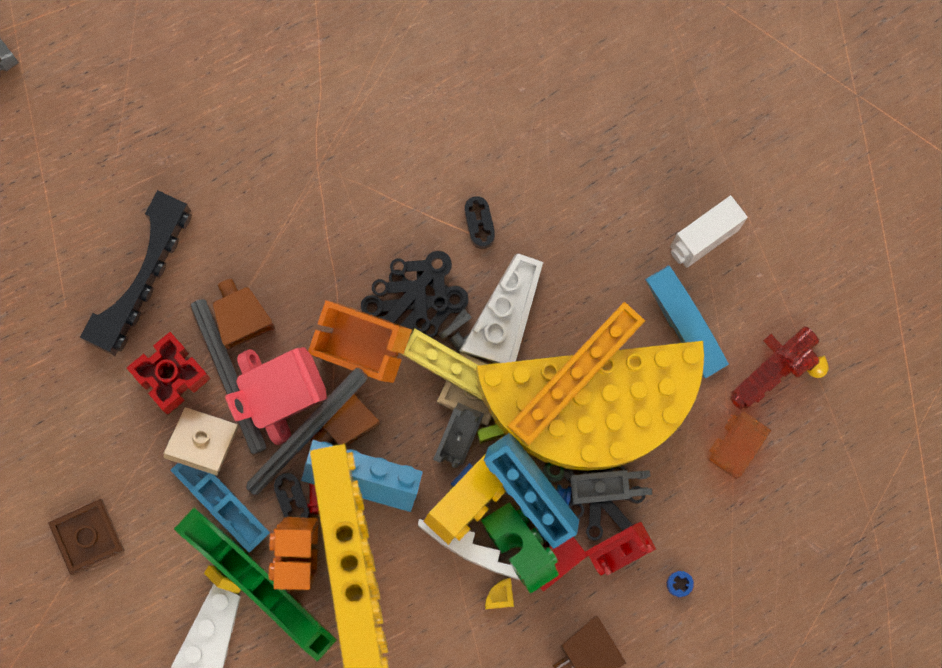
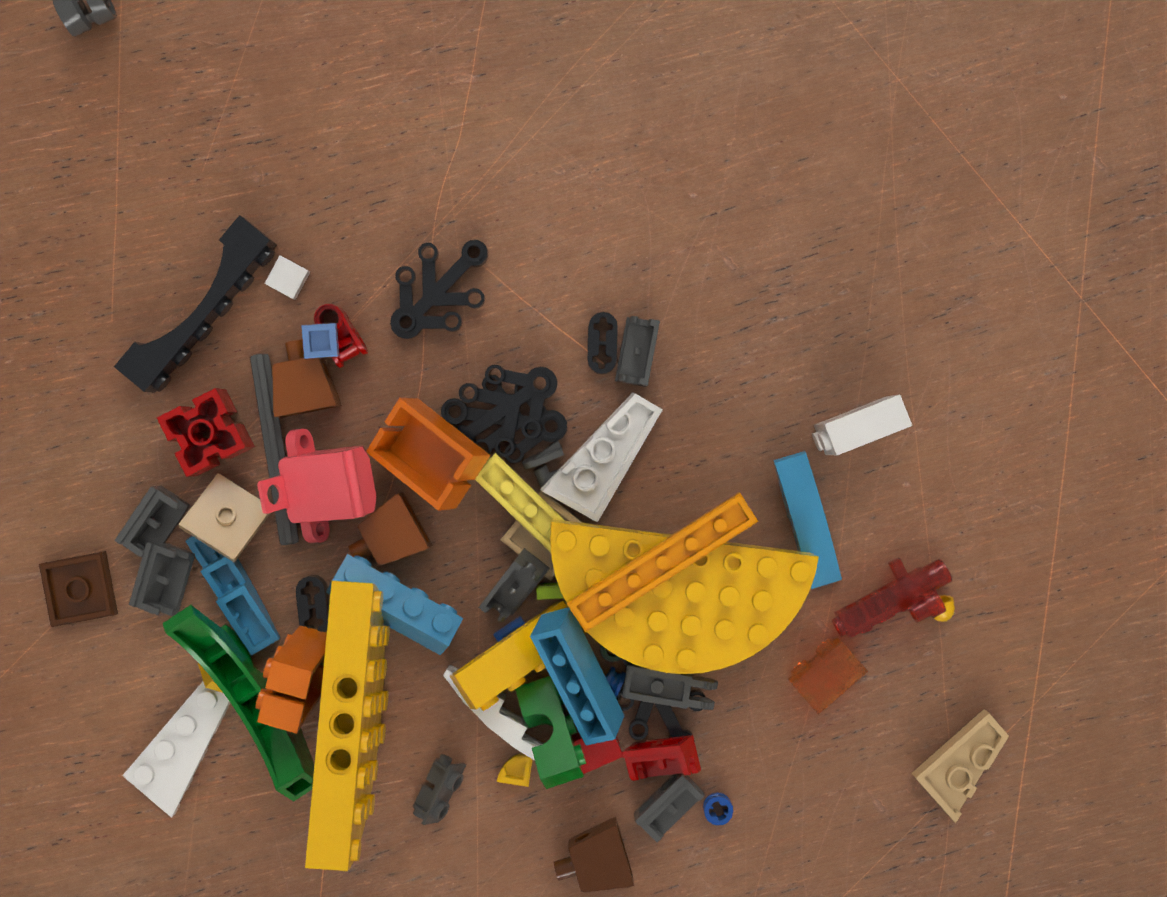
camera: 20 degrees right, 10 degrees up
(139, 461) = (152, 519): none -> dark grey hinge
(158, 506) = (162, 578): none -> dark grey hinge
(206, 233) = (287, 277): none -> white tile
(248, 271) = (320, 340): none -> medium blue plate
(264, 270) = (346, 334): none -> red piece
(306, 431) = (345, 540): dark grey axle -> none
(332, 216) = (435, 292): none -> black plant
(437, 642) = (433, 803): none -> dark grey hinge
(510, 221) = (637, 351): none -> dark grey hinge
(638, 590) = (667, 805): none -> dark grey hinge
(870, 493) = (959, 763): none -> tan wing

